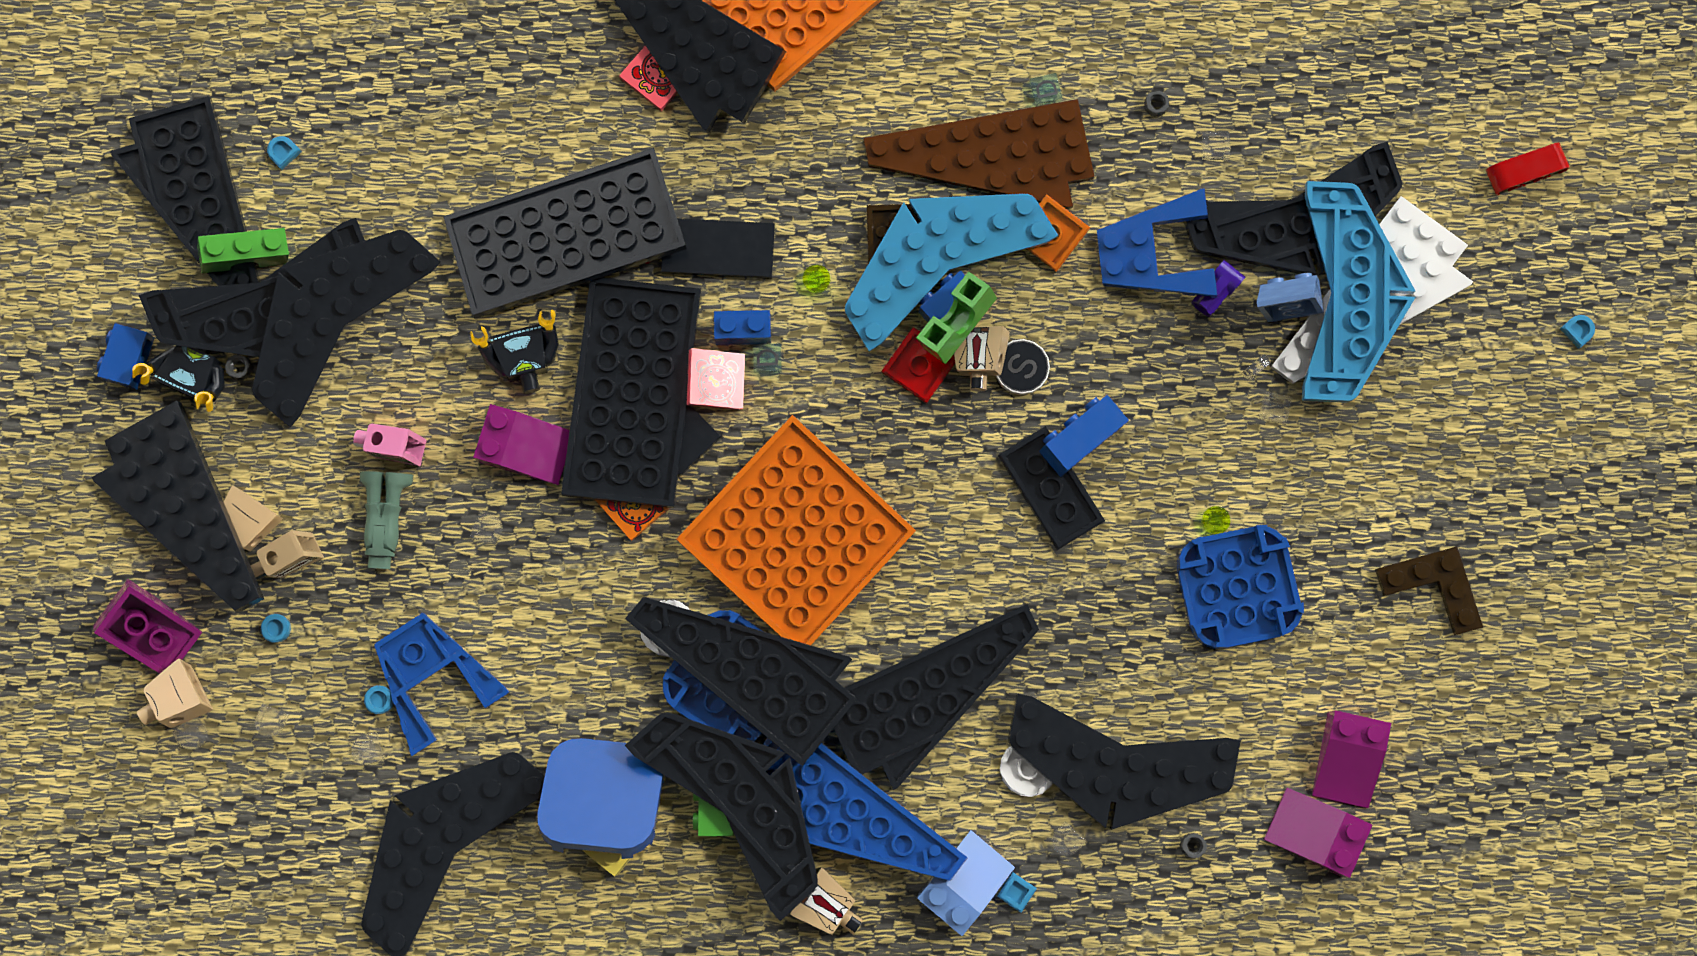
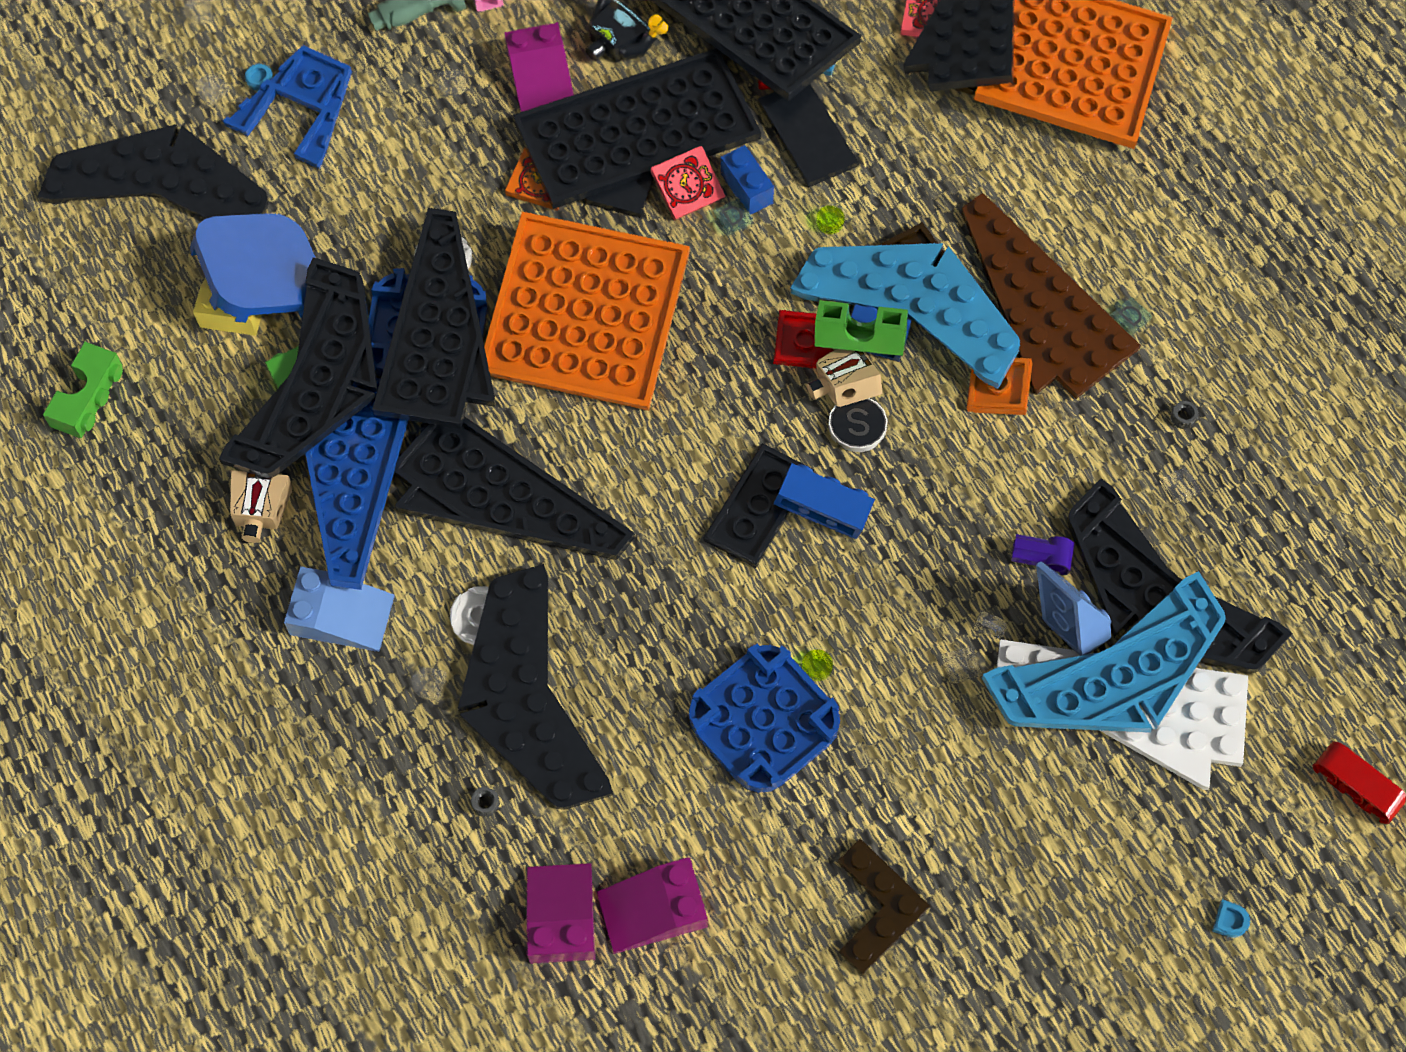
camera: 65 degrees right, 15 degrees down
(1016, 892) = (355, 663): dark azure tile -> none
(1130, 254) = (1030, 457): blue wing -> none

